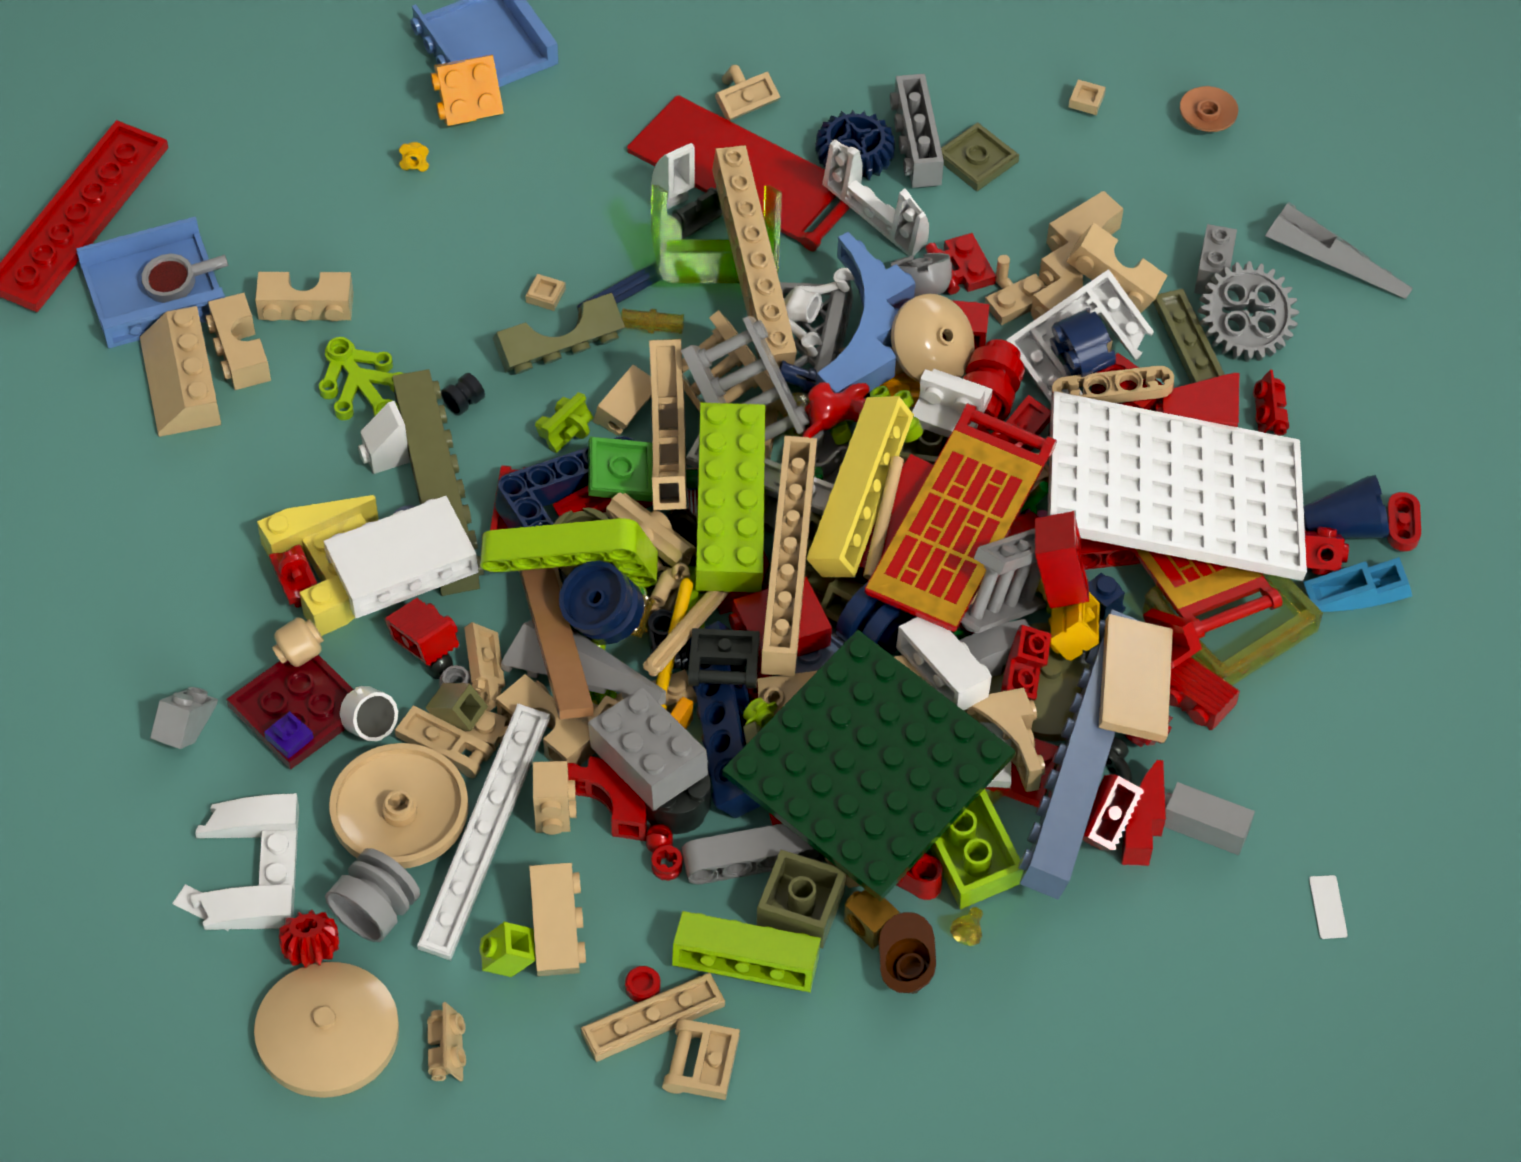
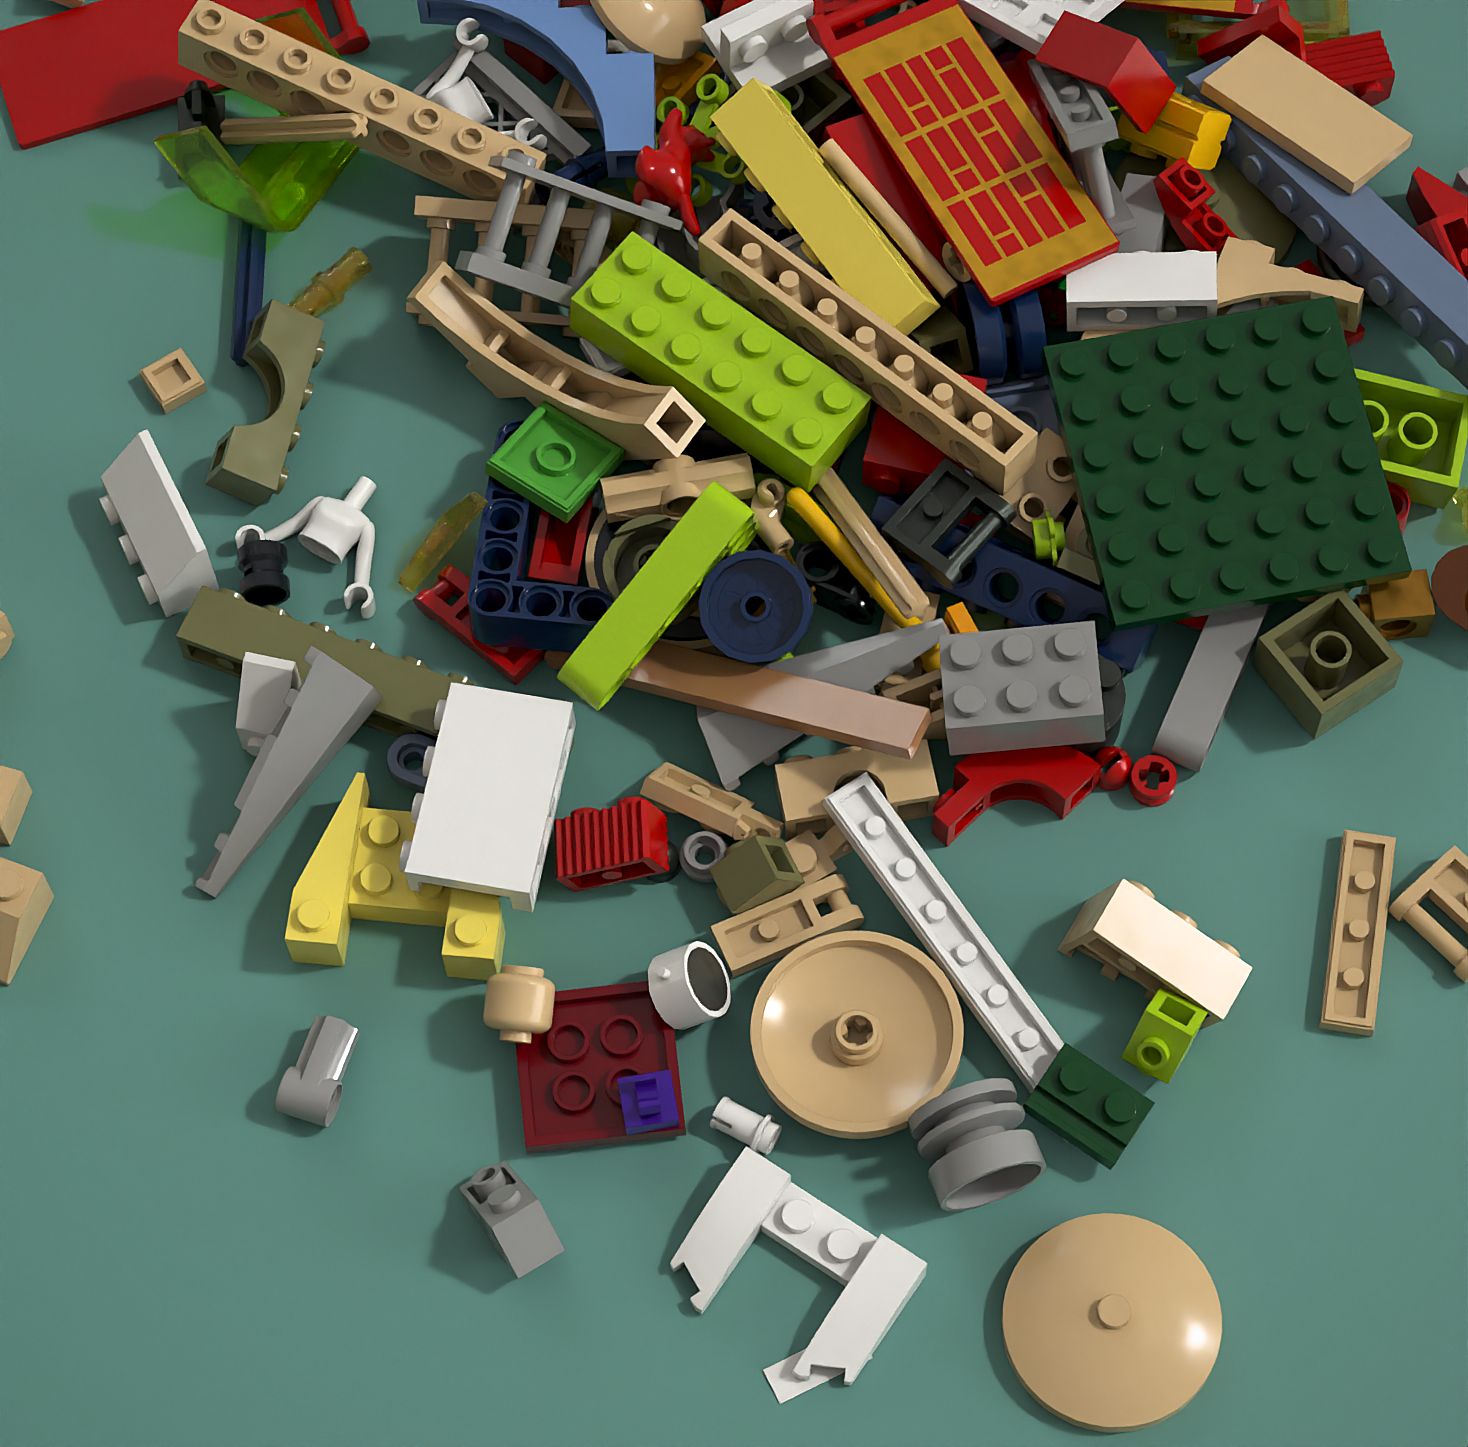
camera: 50 degrees left, 10 degrees up
(194, 590) = (314, 1085): none -> light grey piece
(293, 573) = (394, 945): red hips -> none
(309, 938) = (996, 1264): red gear -> none
(313, 787) = (746, 1126): none -> white pin
(357, 376) = (130, 680): lime plant -> none
(381, 458) = (303, 743): none -> light grey wedge
(439, 939) = (1088, 1106): none -> dark green plate
(446, 1029) = (1255, 1200): tan hinge -> none
(451, 333) = (156, 527): none -> white slope
(513, 407) = (330, 531): none -> white piece
(538, 454) = (441, 538): none -> clear yellow tile
(553, 797) = (984, 846): tan brick -> none
(568, 421) = (417, 480): lime hips -> none
(624, 400) = (432, 394): tan hinge -> none
(642, 983) = (1304, 915): red tile -> none
(676, 174) = (143, 115): white slope -> none
(720, 241) = (294, 129): none -> tan axle
(746, 951) = (1355, 768): lime brick -> none

